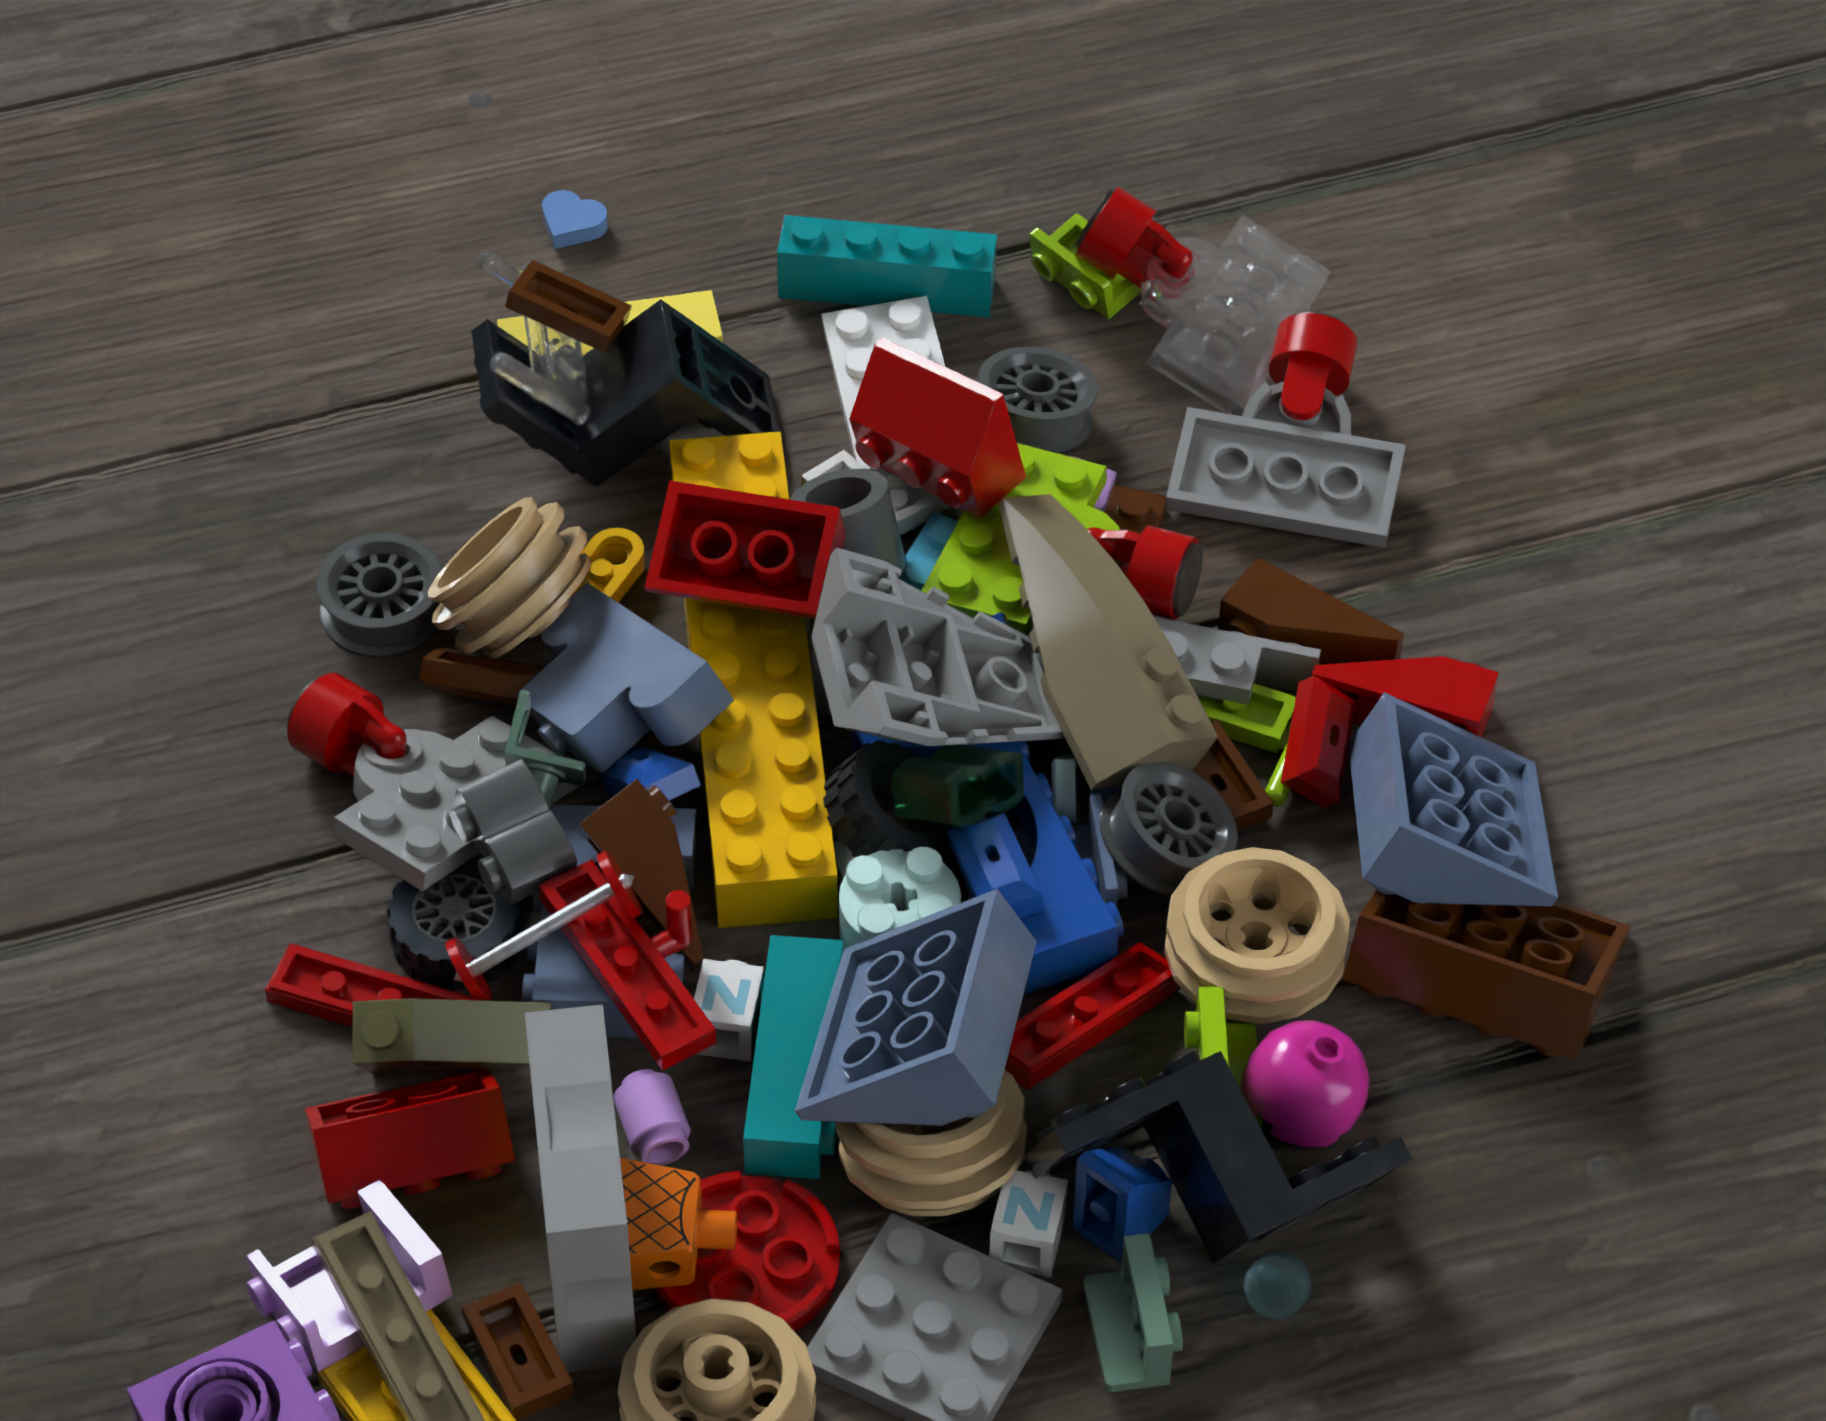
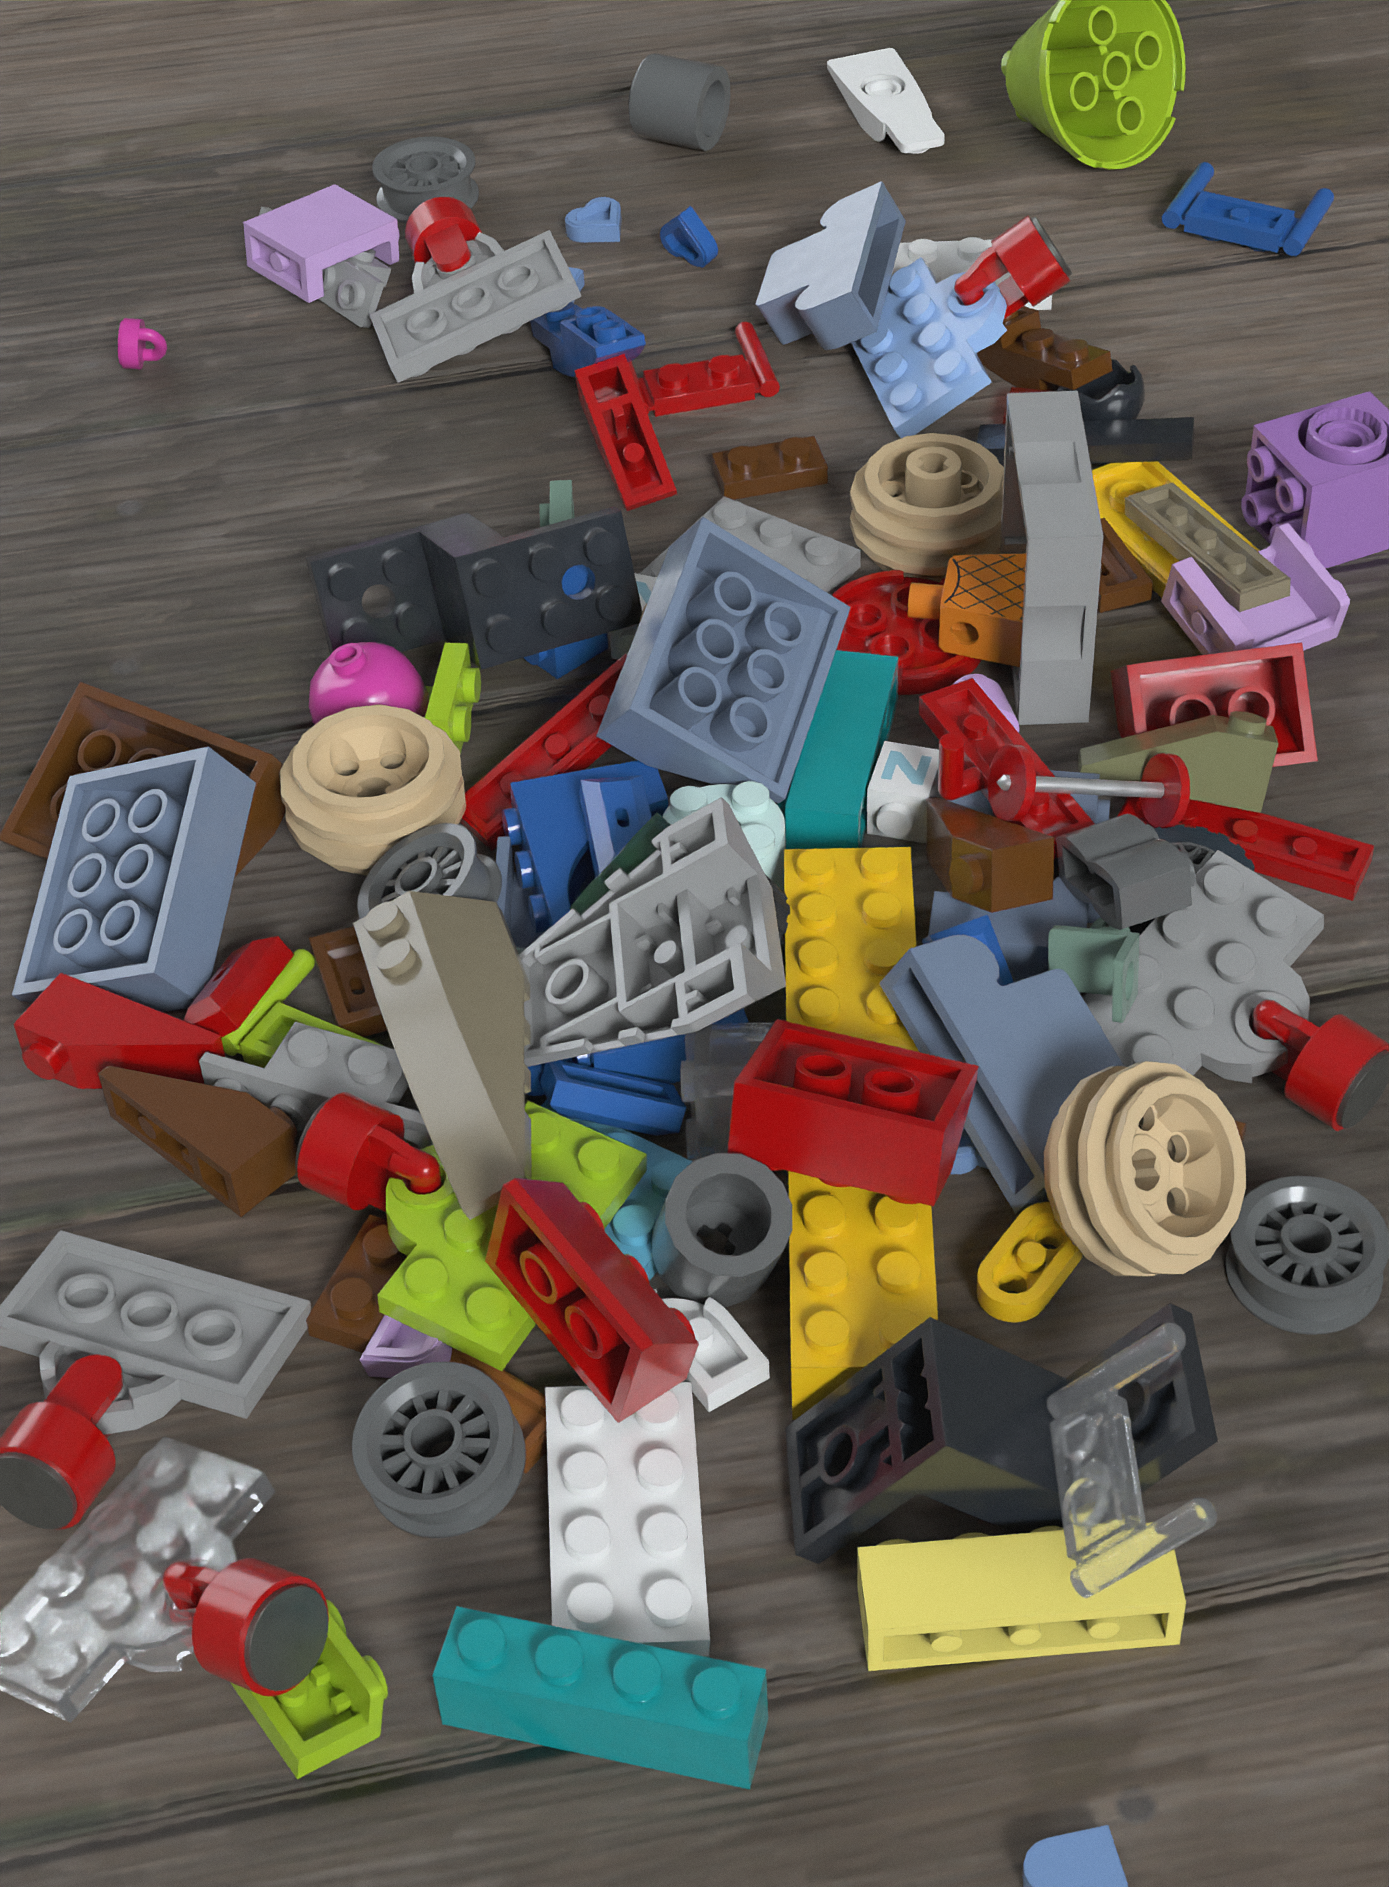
camera: 170 degrees left, 5 degrees down
(568, 306) = (1047, 1440): reddish brown piece -> none

